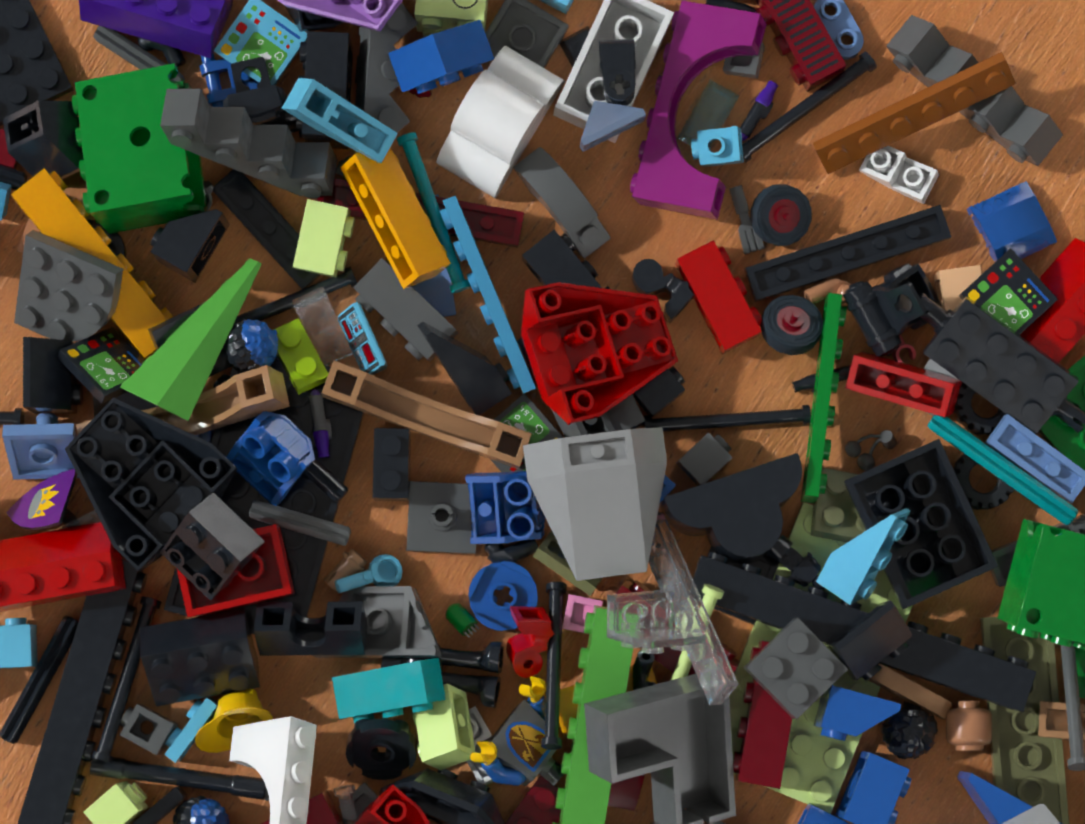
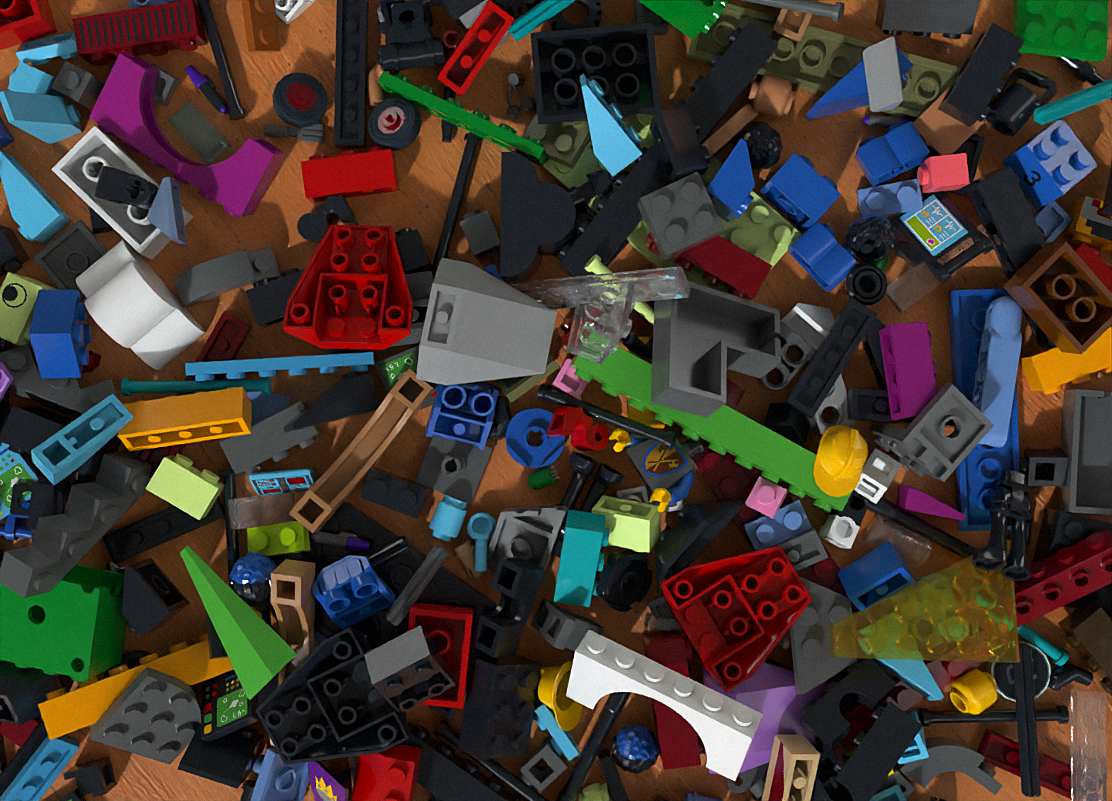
camera: 70 degrees left, 5 degrees up
(308, 695) = (561, 626): none -> dark grey tile
(383, 531) = (448, 518): none -> medium azure brick
(730, 152) = (233, 124): medium azure brick -> none

